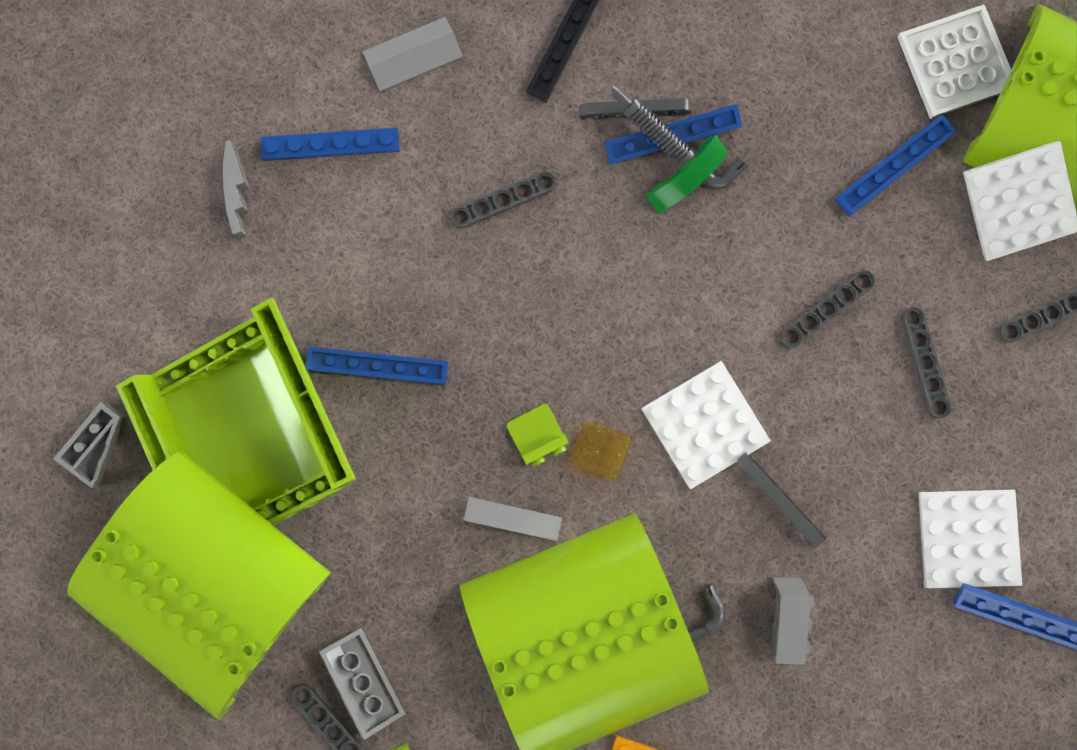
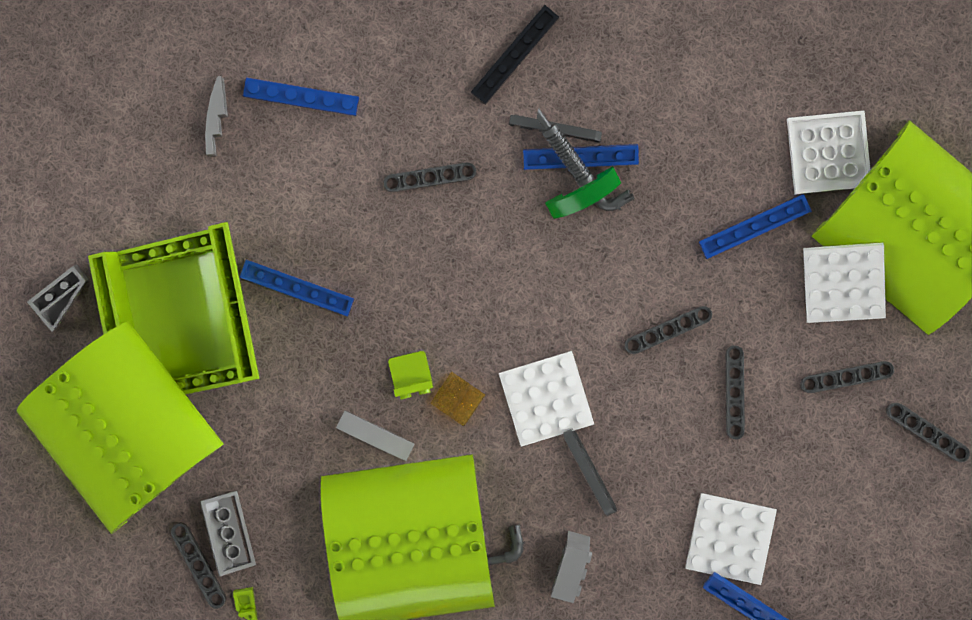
camera: 15 degrees right, 5 degrees up
(412, 54) = (385, 36): light grey slope -> none

